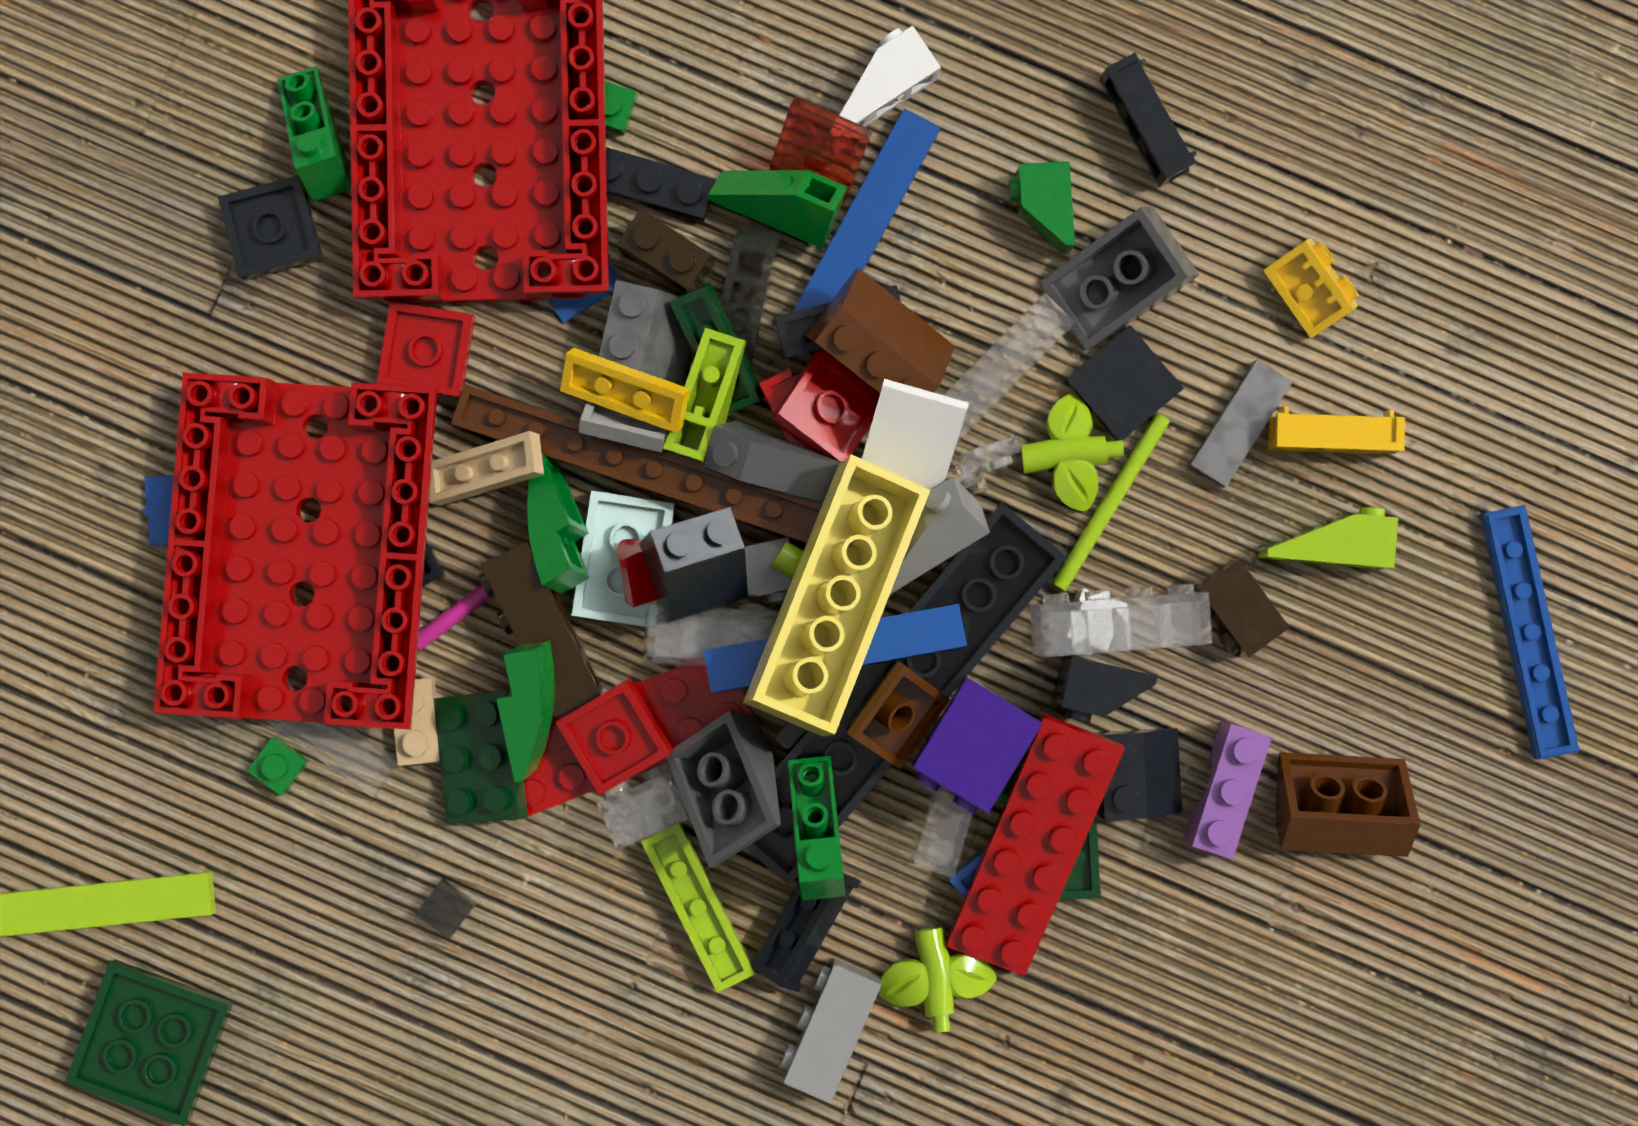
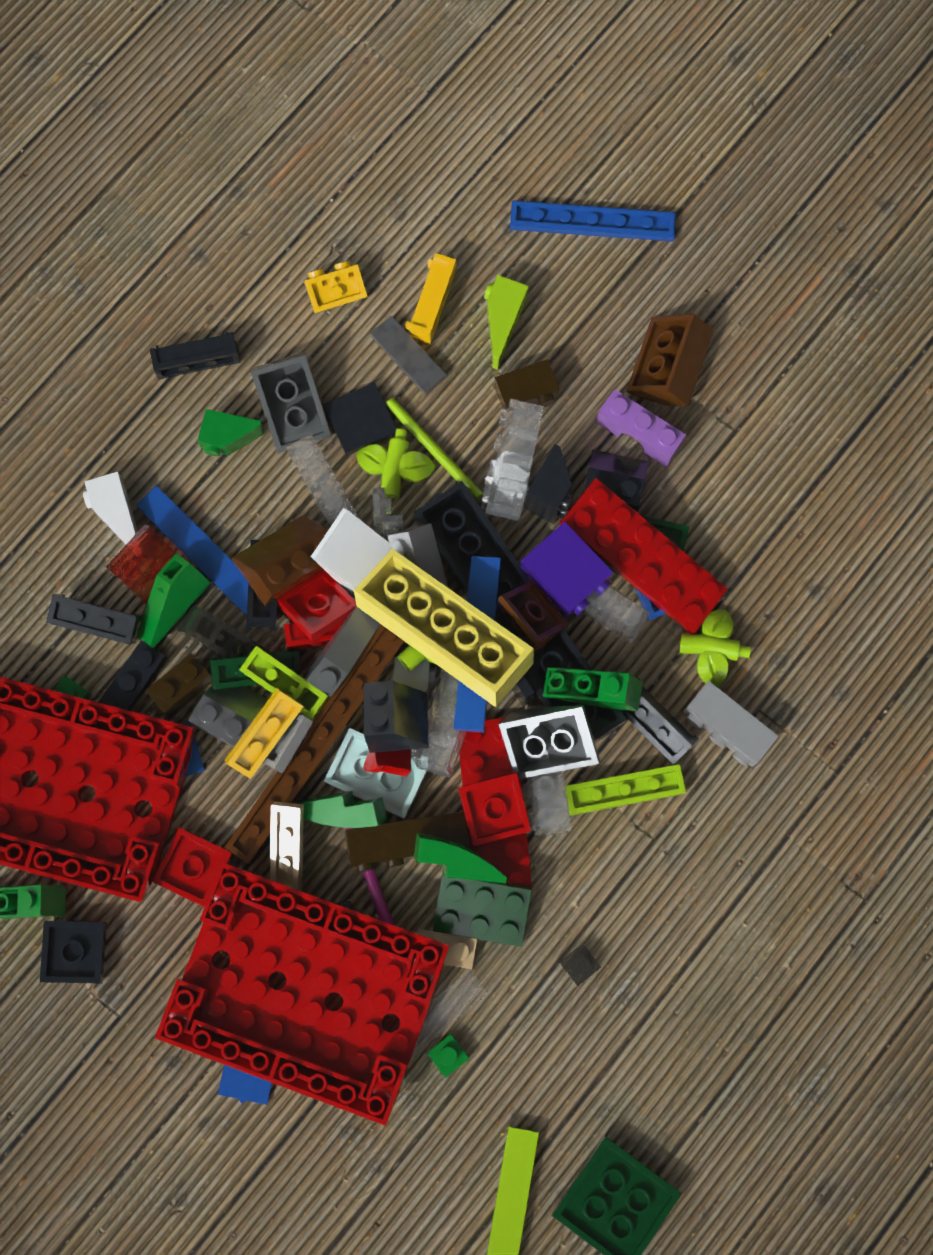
camera: 75 degrees left, 10 degrees down
(722, 103) = (93, 619): none -> black container

